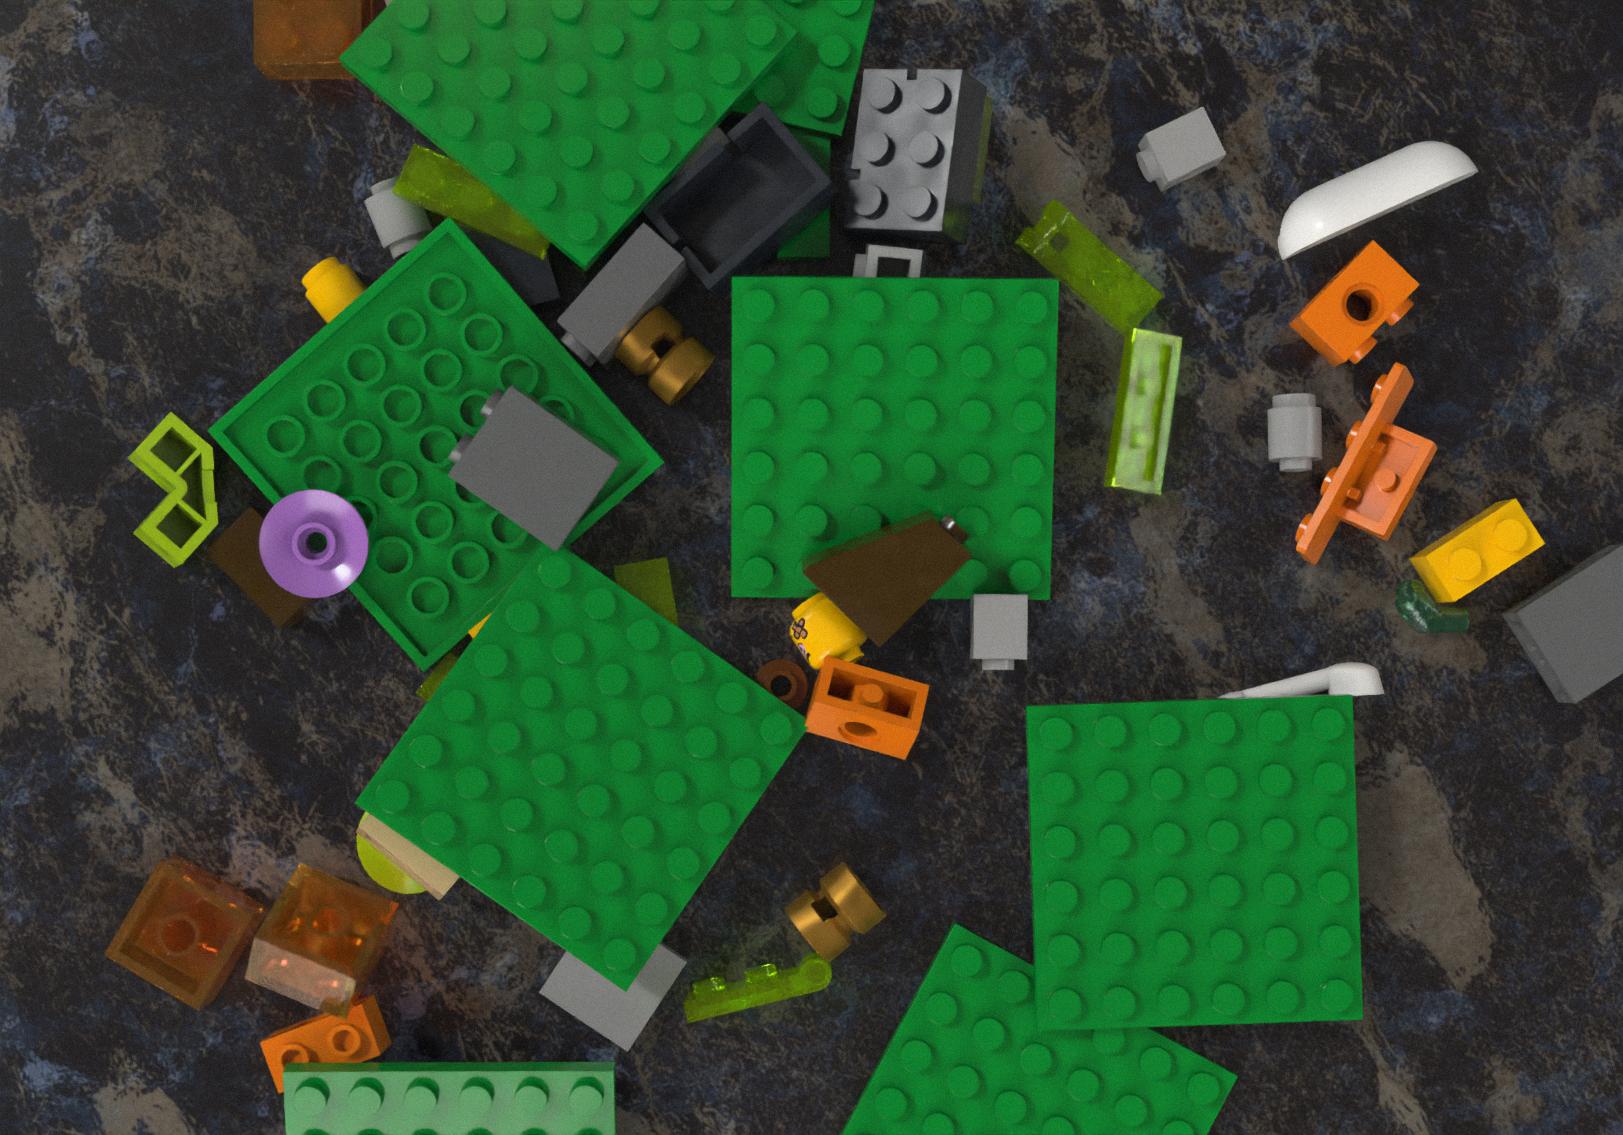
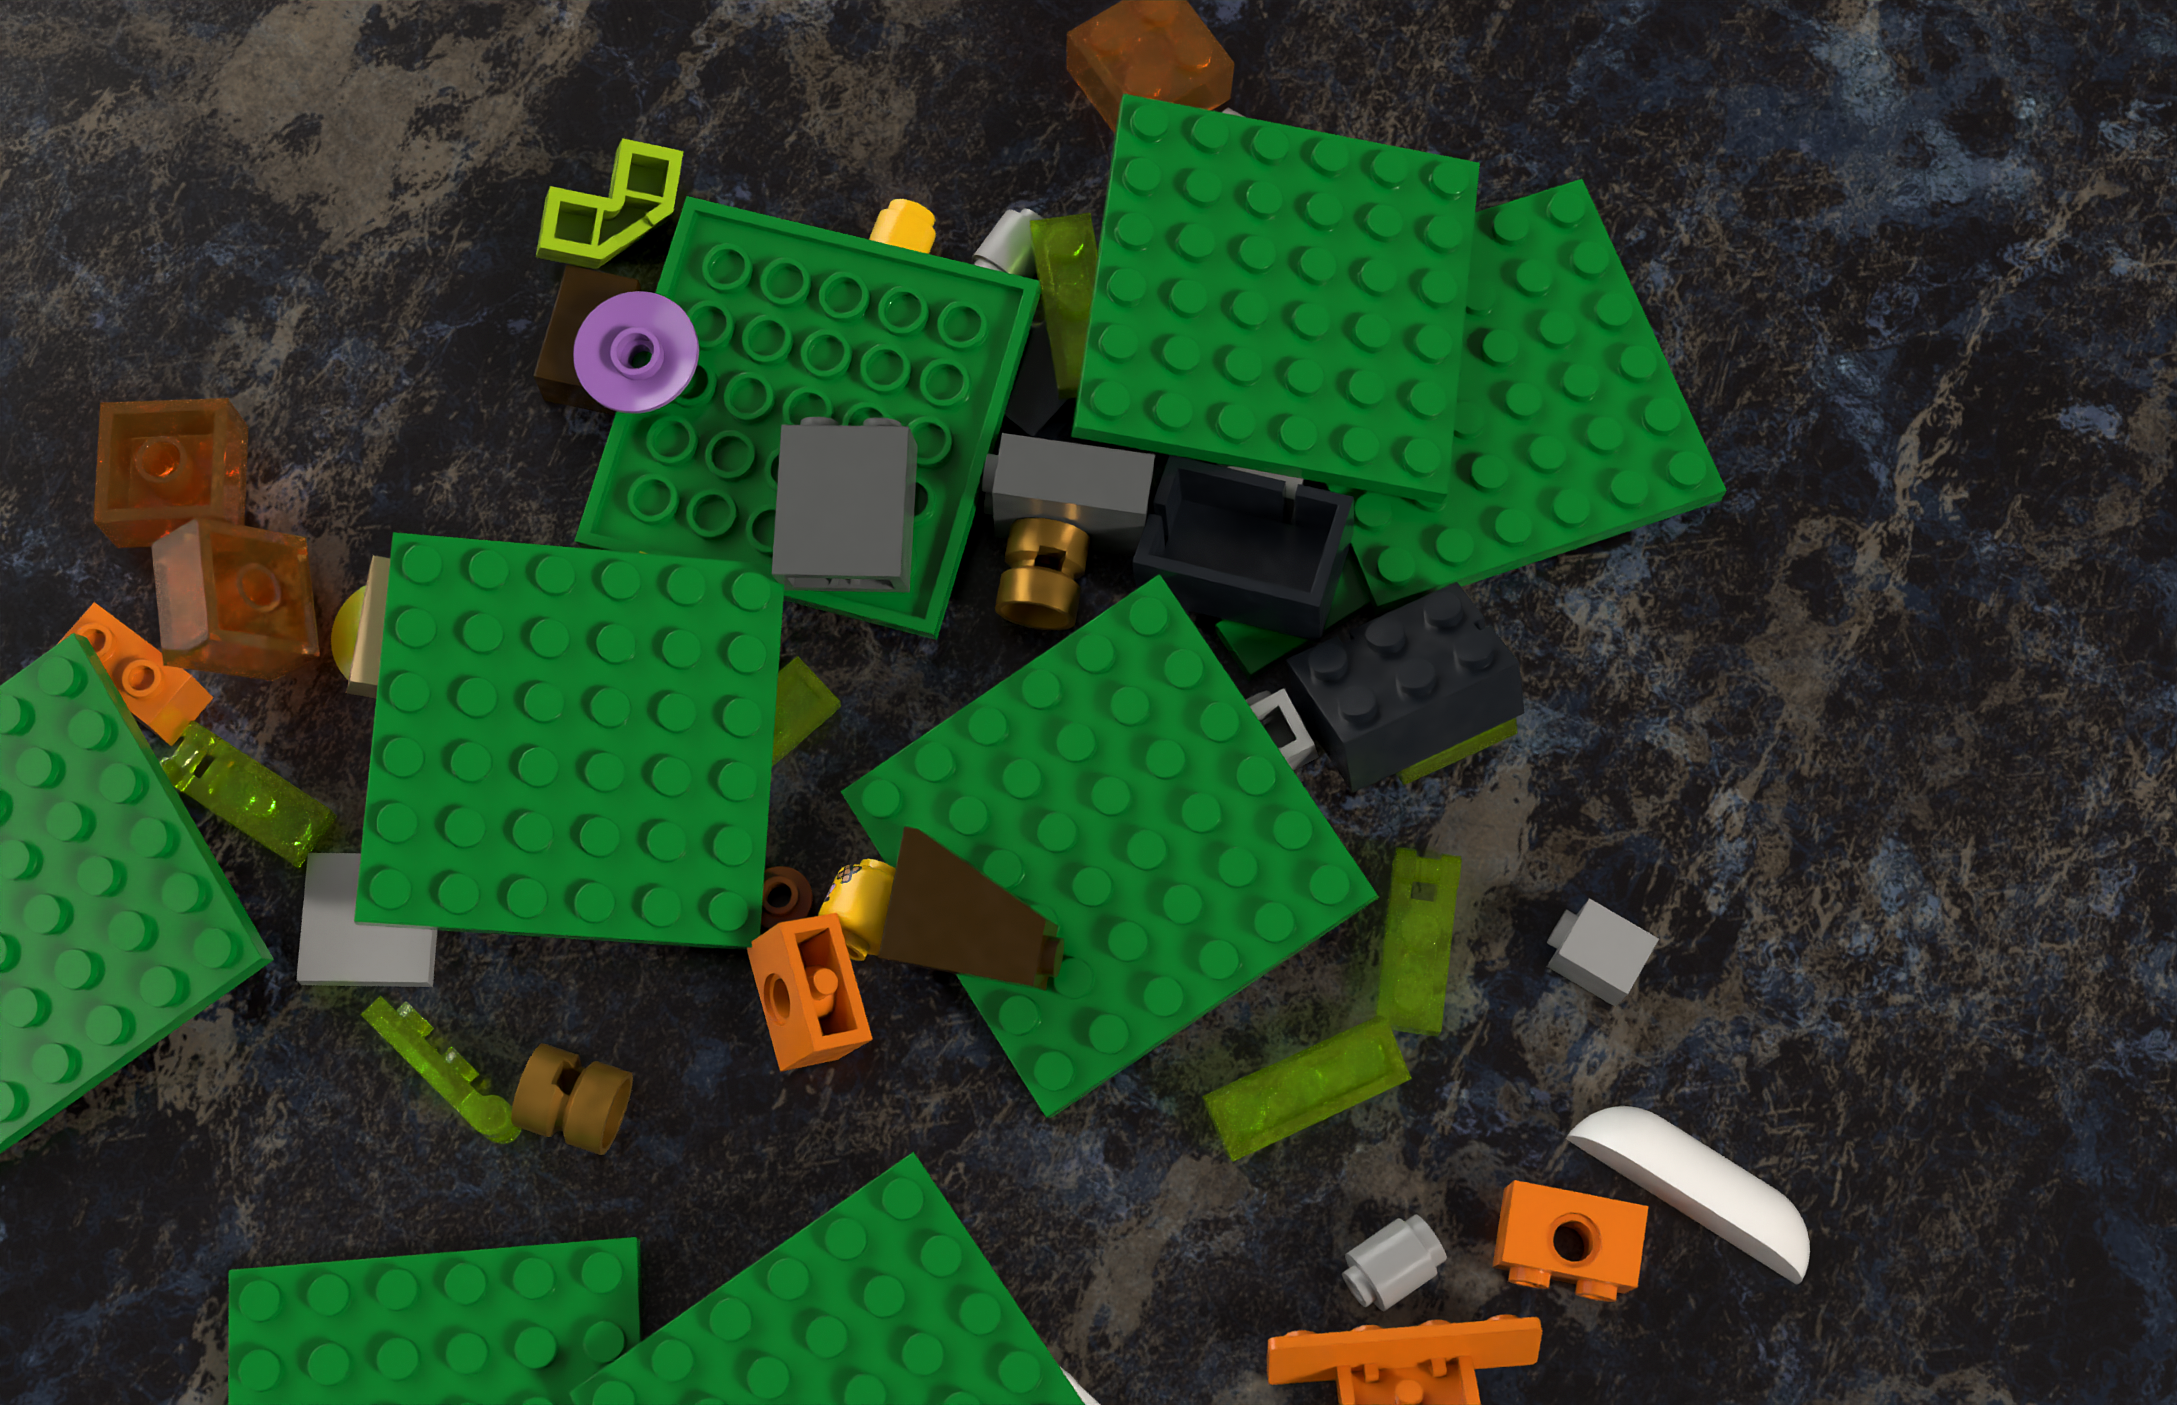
camera: 55 degrees right, 15 degrees down
(467, 1011) = (248, 795): none -> clear neon green plate
(998, 629) = (979, 1081): light grey brick -> none

